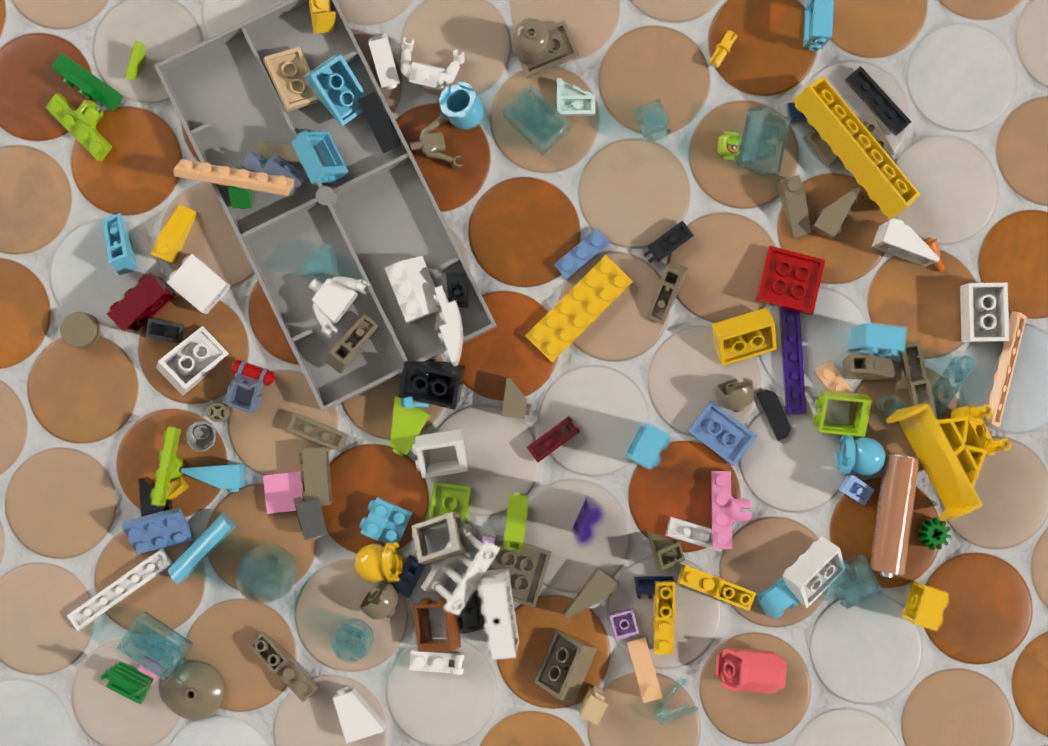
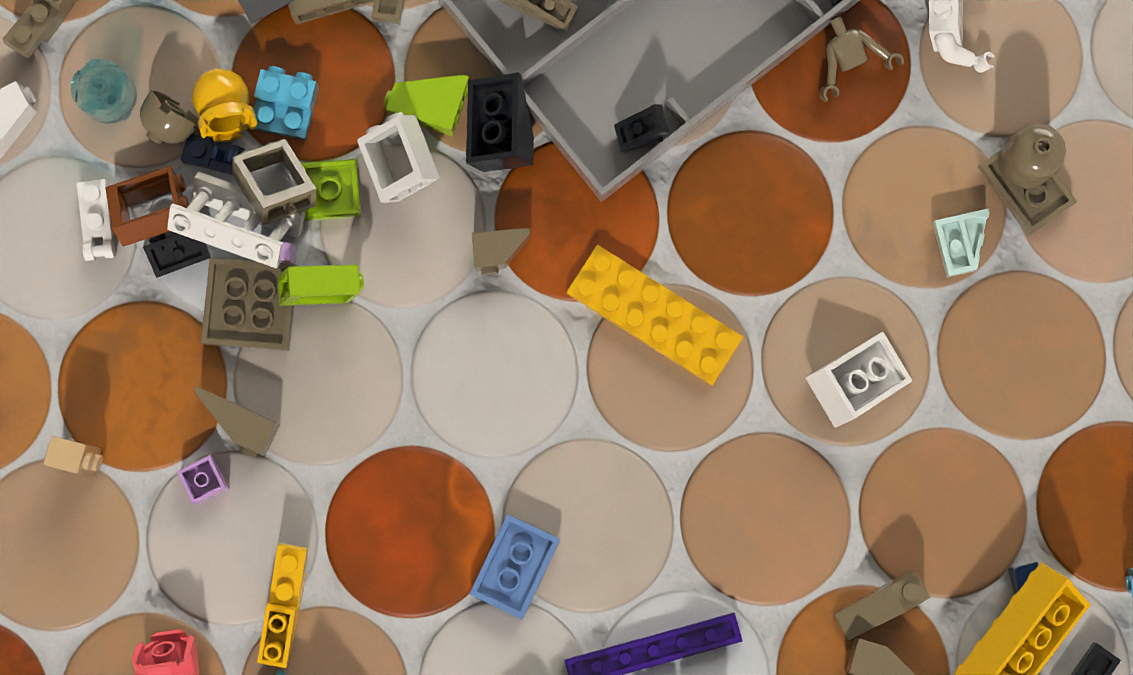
camera: 80 degrees right, 5 degrees down
(408, 403) = (462, 93): medium azure hand -> none
(413, 288) = (628, 67): white slope -> none
(452, 332) = (577, 132): white slope -> none
(461, 106) = (911, 77): medium azure tile -> none
(499, 614) = (180, 289): white brick -> none
(536, 119) = (919, 191): clear light blue brick -> none
(552, 439) = (453, 317): dark red plate -> none
(565, 666) = (123, 406): dark tan slope -> none
(581, 253) = (736, 302): medium blue plate -> none
(587, 517) = (338, 377): dark purple plate -> none
(644, 670) = (139, 524): light nougat slope -> none
(646, 584) = (267, 512): dark blue plate -> none
(647, 445) = (470, 451): medium azure brick -> none
(649, 187) = (858, 380): none -> white slope
(654, 121) = (957, 362): clear light blue brick -> none
(664, 617) = (222, 535): yellow slope -> none
(665, 551) = (321, 518): olive slope -> none
(665, 714) = (81, 569): clear light blue plant -> none
(667, 292) = (709, 438): dark tan slope -> none
(669, 242) = (783, 426): black hinge -> none
(690, 532) = (356, 560): white tile -> none
(723, 48) = (1093, 446): yellow axle -> none
(725, 510) = (401, 595): bright pink plate -> none
(729, 145) = (950, 486): lime head -> none
(734, 394) = (577, 572): dark tan cylinder -> none
(744, 336) = (667, 569): yellow slope -> none
(763, 141) = (968, 533): clear light blue brick -> none
(774, 414) = (561, 642): black piece -> none
(790, 280) = (768, 621): red plate -> none
(820, 147) = (979, 624): dark tan plate -> none

